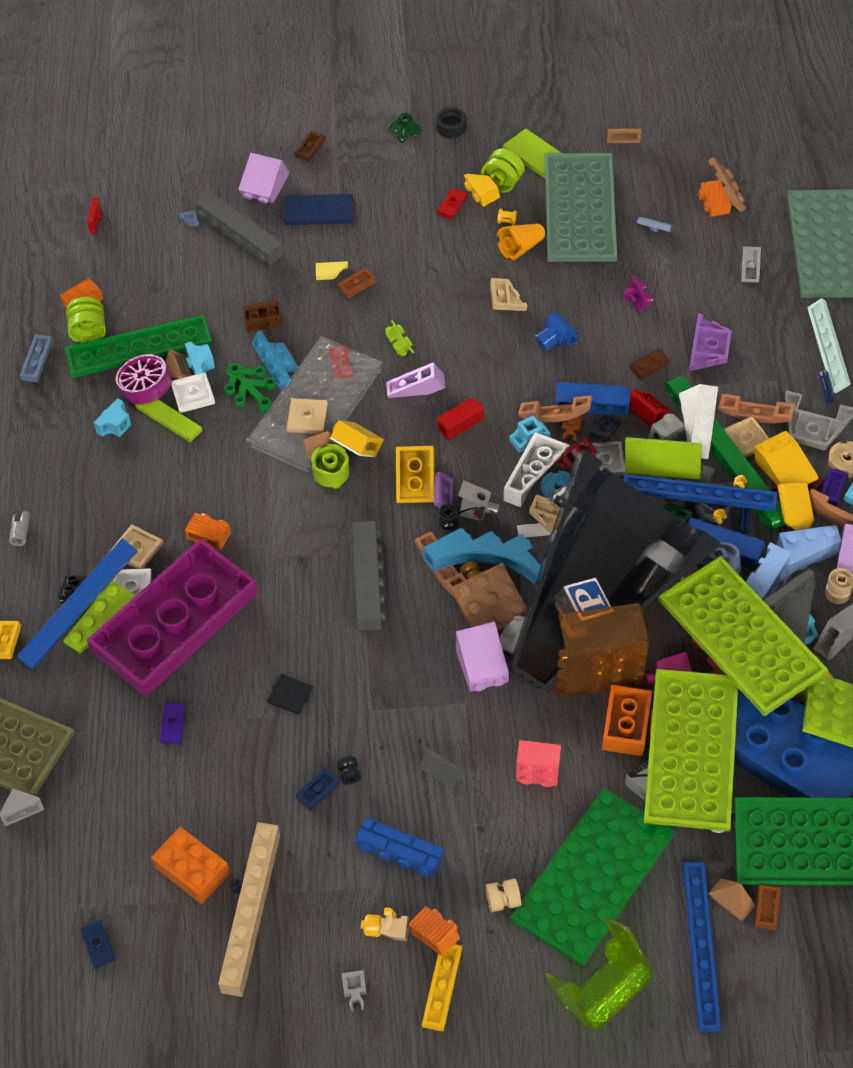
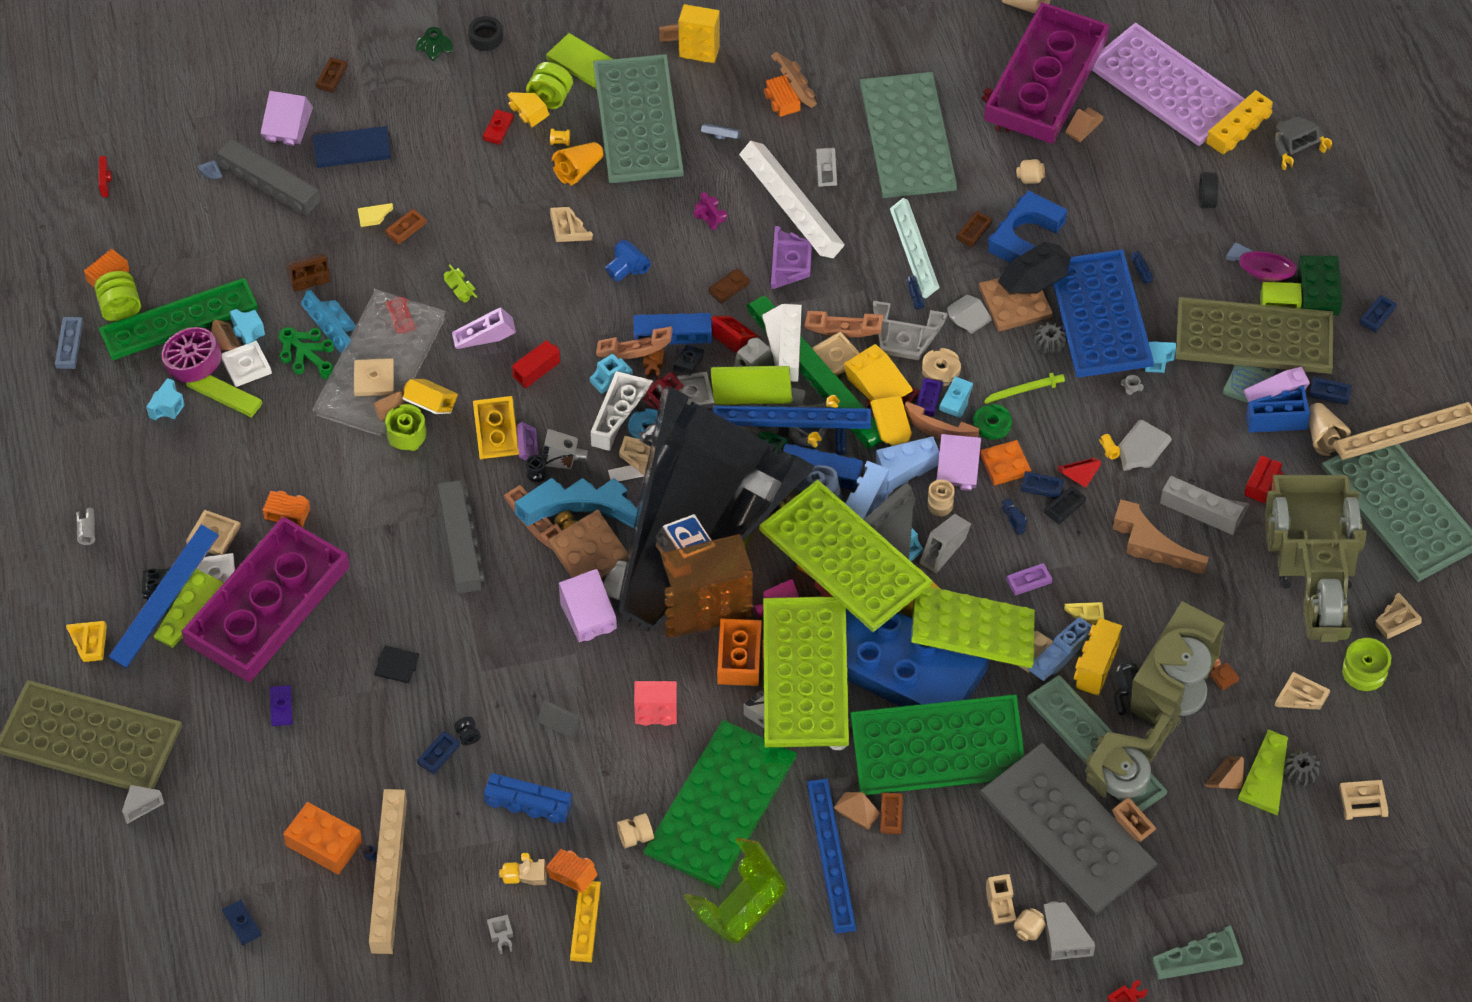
camera: 10 degrees left, 0 degrees up
(643, 136) = (699, 33): none -> yellow brick
(716, 291) = (792, 199): none -> white brick

